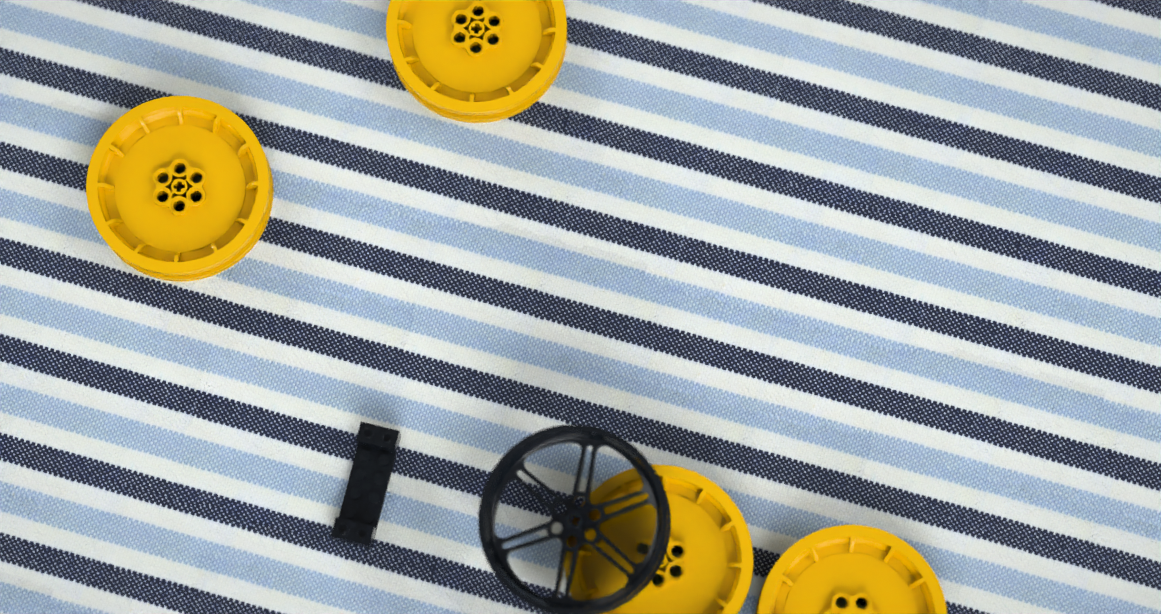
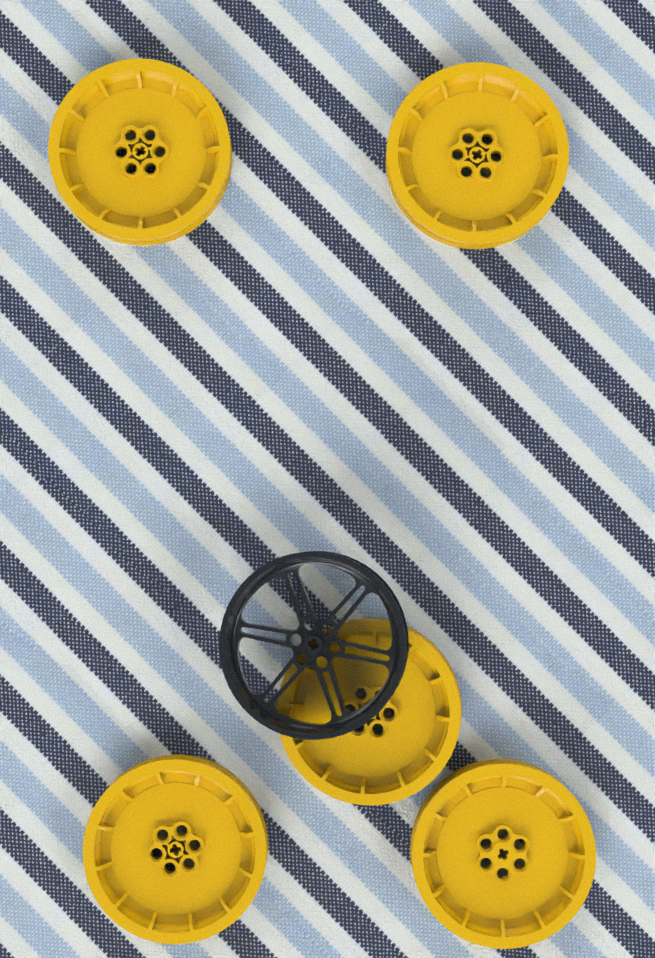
camera: 30 degrees right, 10 degrees up
(367, 485) = (158, 504): black plate -> none

